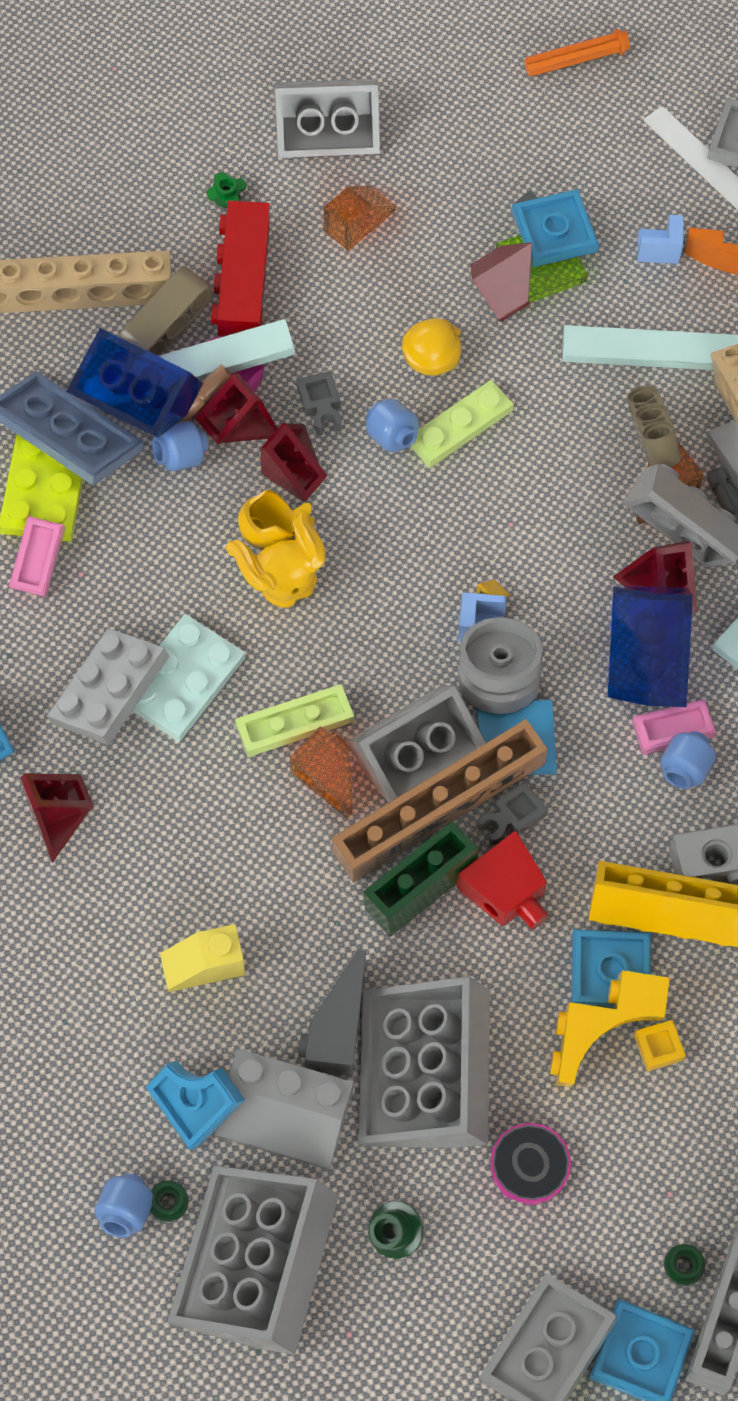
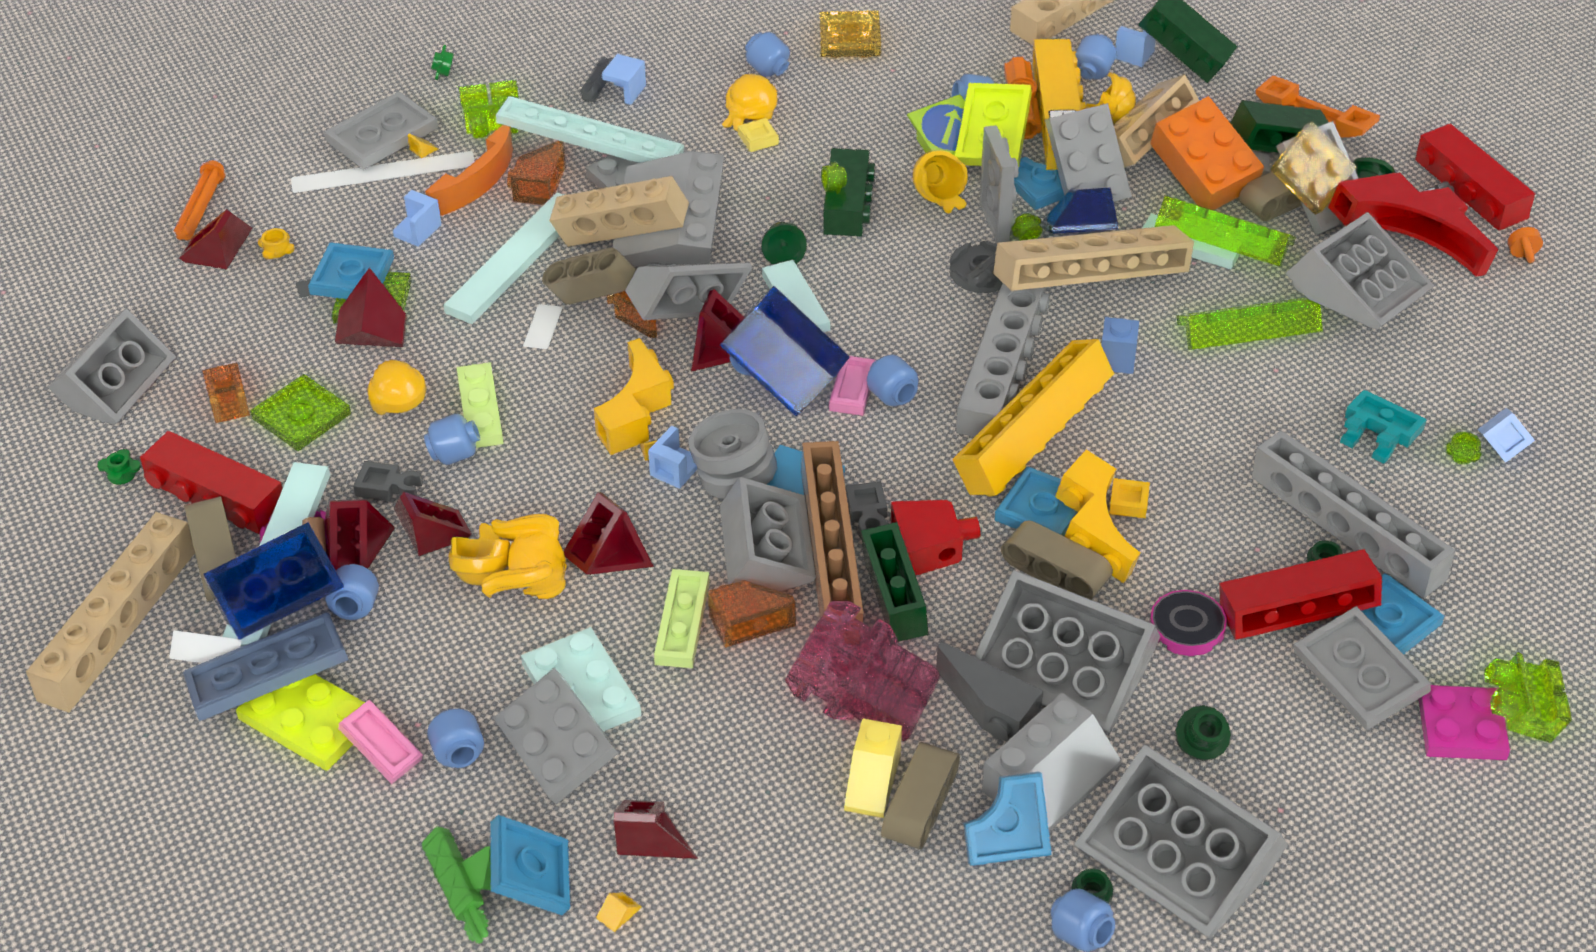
camera: 60 degrees left, 20 degrees down
(66, 363) = (200, 647): none -> white sticker
(66, 611) = (455, 738): none -> medium blue head
(196, 1011) = (920, 795): none -> dark tan beam
(315, 903) = (871, 671): none -> clear pink connector
(345, 613) = (606, 540): none -> dark red slope
(370, 288) = (300, 412): none -> clear neon green tile
(504, 551) = (626, 417): none -> yellow arch
(531, 102) = (217, 242): none -> dark red slope
(537, 1011) = (1056, 559): none -> dark tan beam
(563, 139) = (275, 243): none -> yellow plate
(595, 421) = (542, 326): none -> white sticker
(609, 1255) = (1300, 594): none -> red brick

